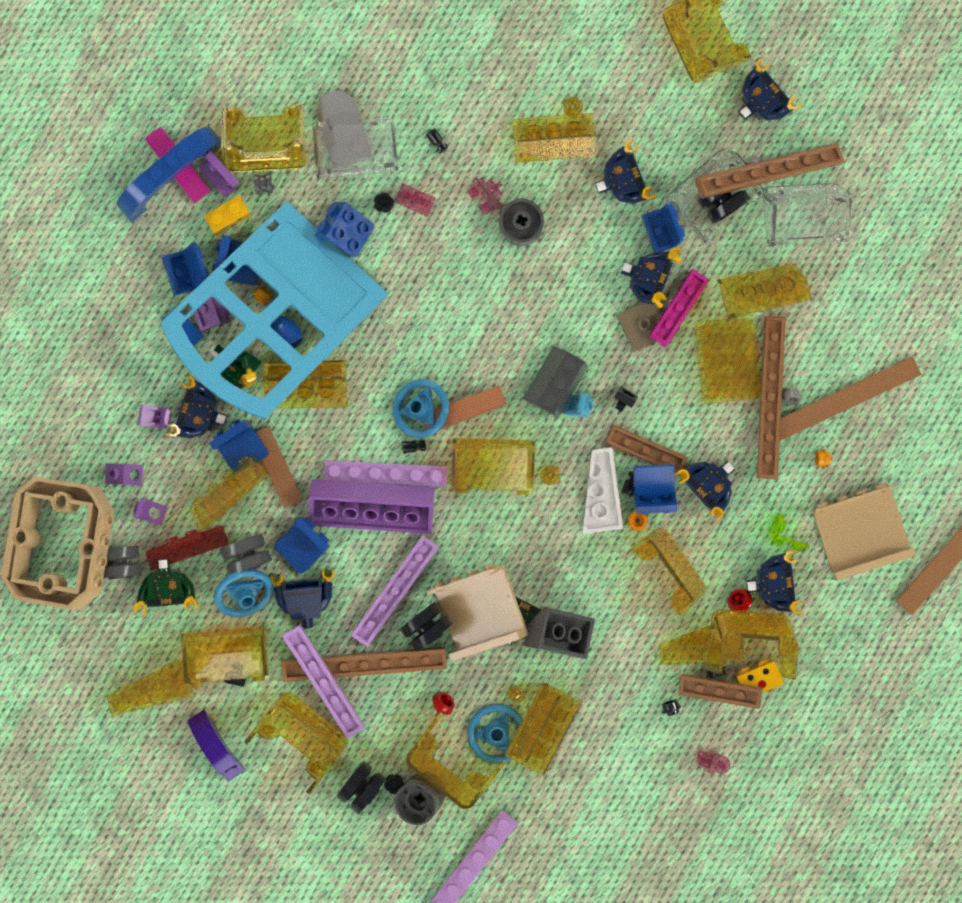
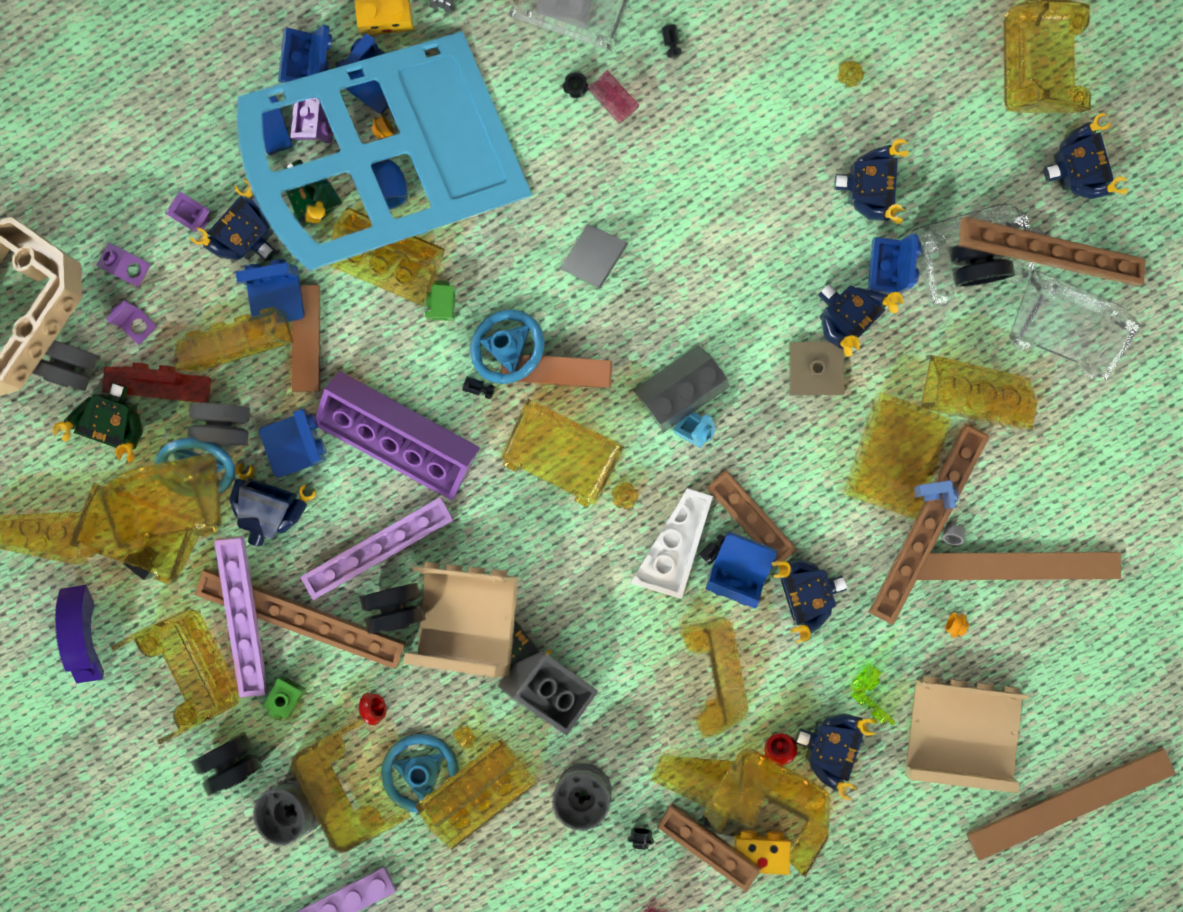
camera: 25 degrees right, 0 degrees up
(236, 622) = (163, 500): none -> clear yellow windscreen
(345, 228) = (516, 93): blue bracket -> none
(360, 398) = (441, 302): none -> bright green brick
(378, 717) = (290, 691): none -> bright green brick
(386, 473) = (431, 405): lavender plate -> none
(393, 778) = (263, 776): black plate -> none
(452, 317) = (594, 256): none -> piece
(481, 188) = (698, 119): clear pink hips -> none
(521, 210) = (729, 165): dark grey wheel -> none
(554, 138) = (811, 100): clear yellow slope -> none
(617, 708) = (582, 812): none -> dark grey wheel
(625, 398) = (755, 445): black tile -> none
(633, 524) = (697, 591): light orange plate -> none
(678, 308) = (867, 367): dark pink tile -> none
(763, 373) = (933, 490): none -> medium blue bracket

